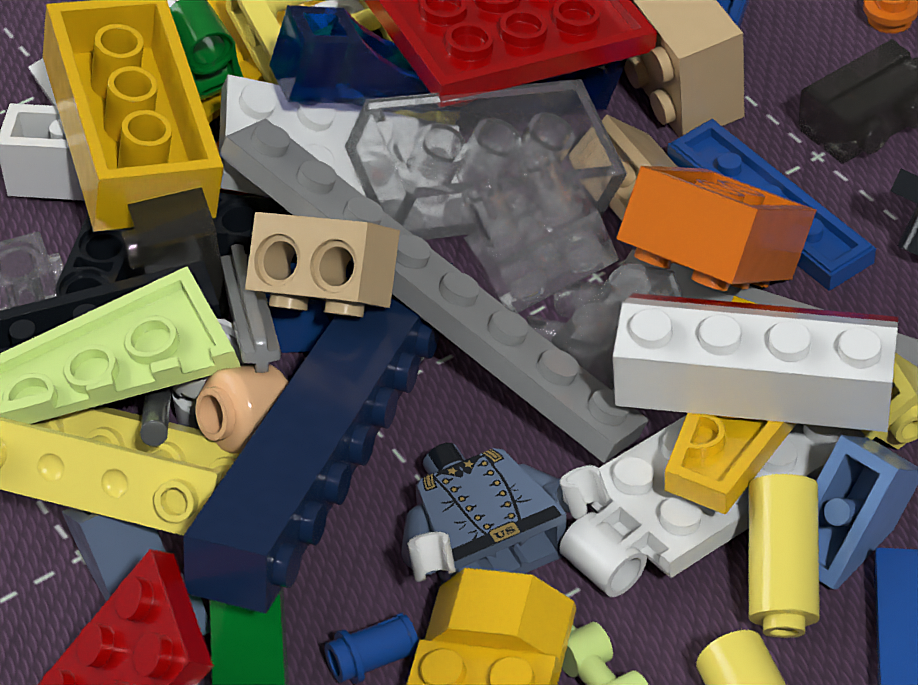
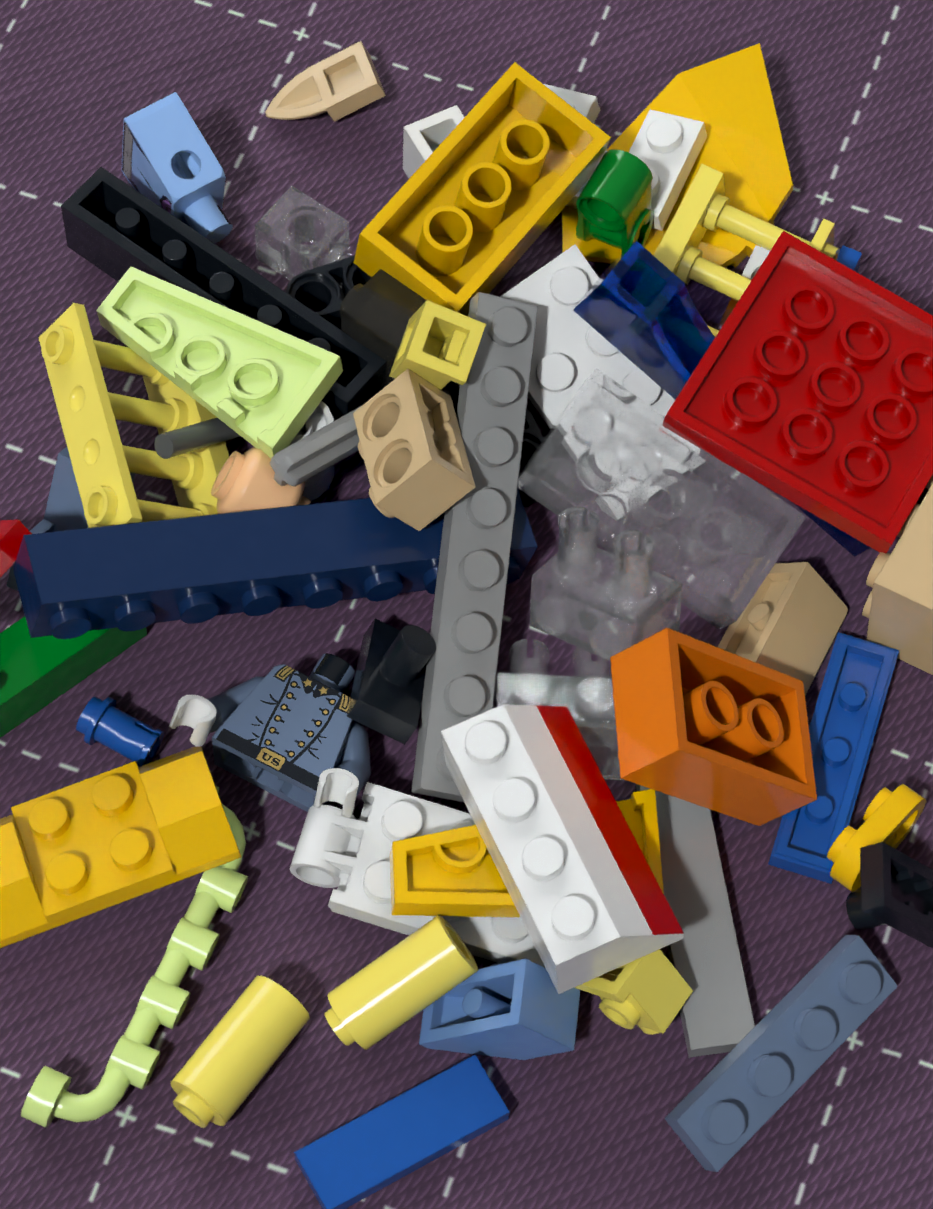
camera: 50 degrees right, 15 degrees up
(247, 181) = (438, 345): none -> light yellow brick
(487, 414) = (391, 679): none -> black tile
(867, 200) = (886, 820): none -> yellow plate

